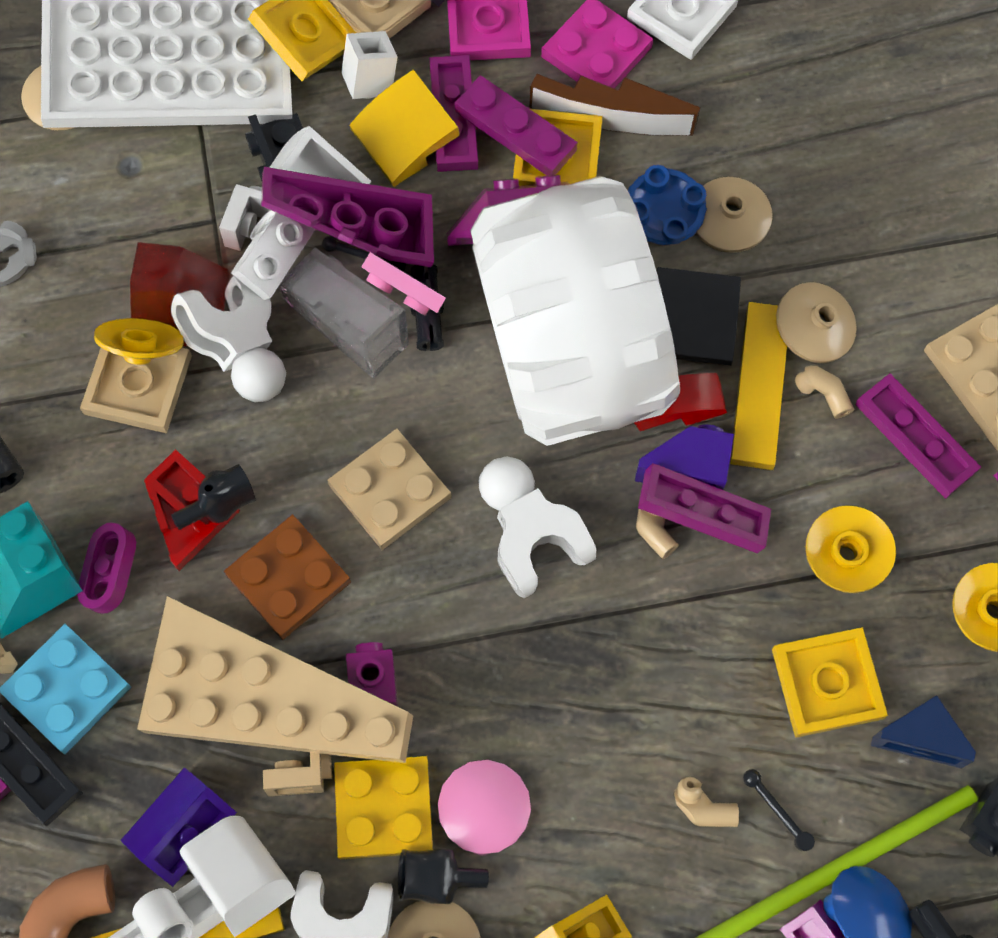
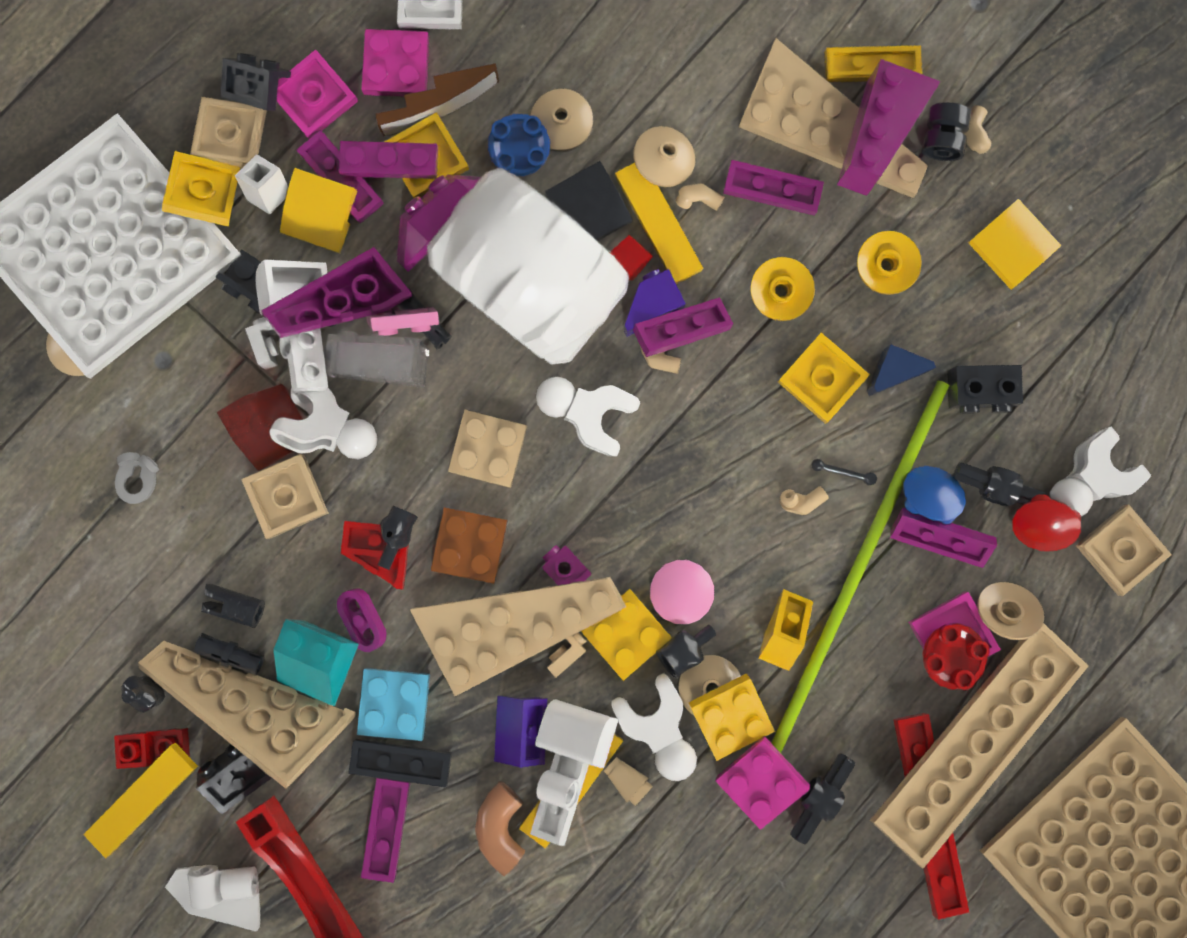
camera: 35 degrees left, 15 degrees up
(138, 339) = (268, 472): yellow dish -> none

